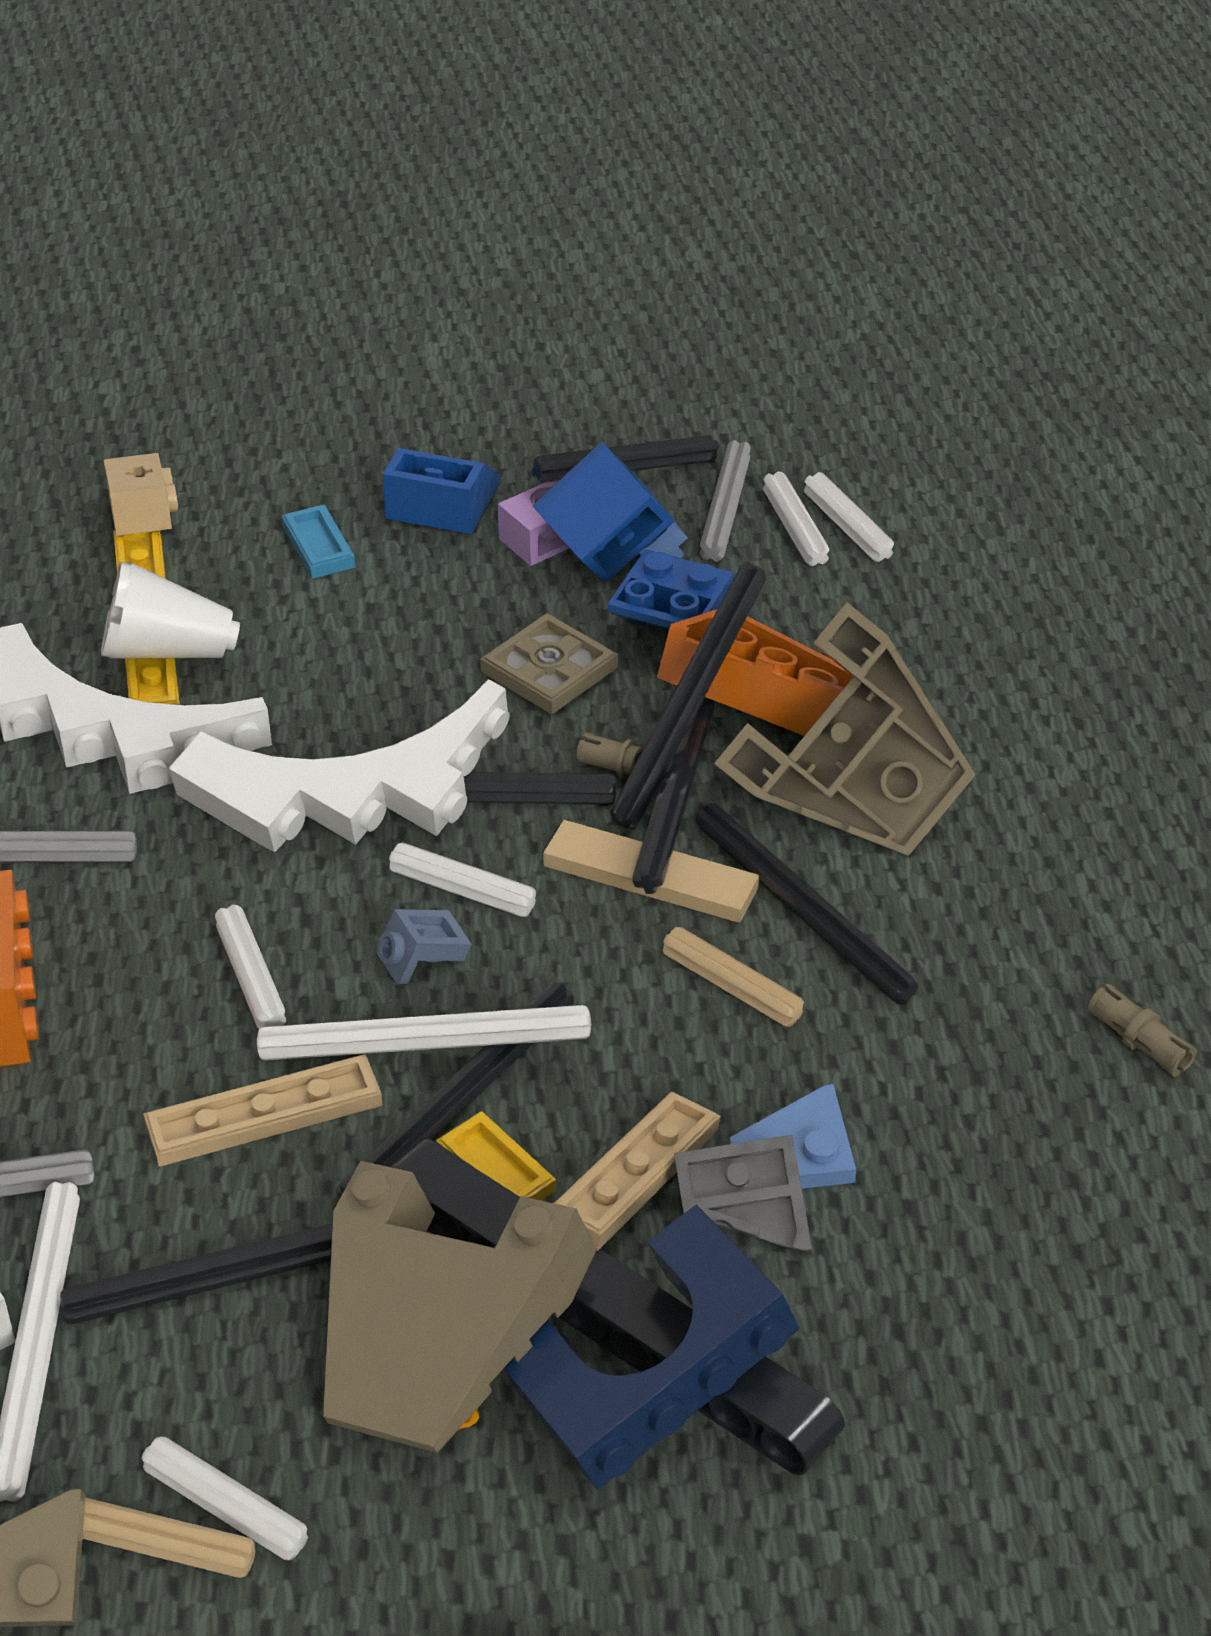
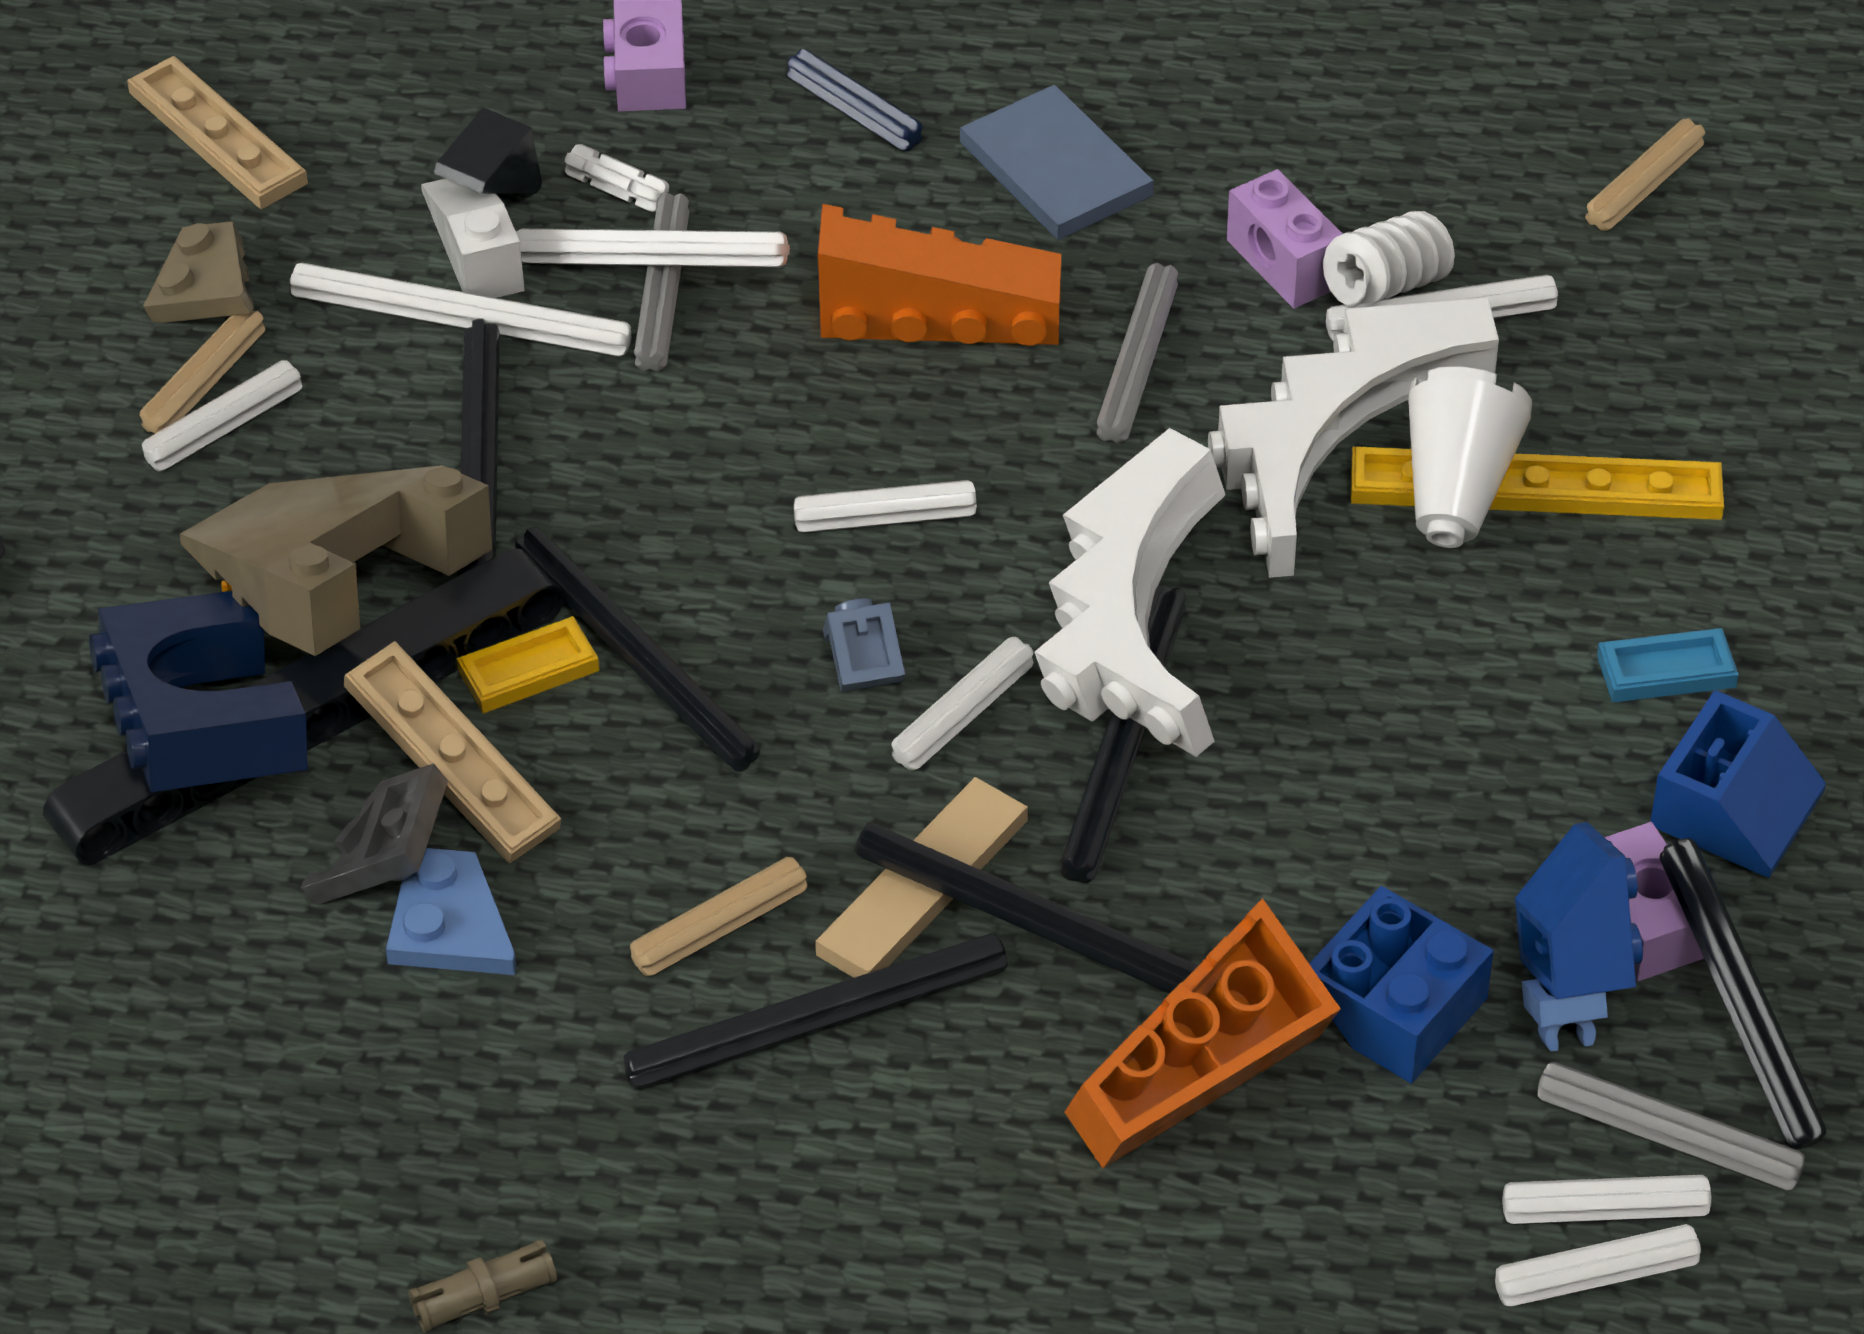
camera: 105 degrees right, 5 degrees up
(140, 494) = (1770, 474): tan brick -> none
(262, 1110) = (678, 498): tan tile -> none
(424, 1032) = (706, 616): white axle -> none
(549, 663) = (1334, 848): dark tan piece -> none
(609, 754) = (1123, 886): dark tan pin -> none
(688, 696) = (1154, 914): black axle -> none
(872, 759) = (1026, 1060): dark tan wedge -> none

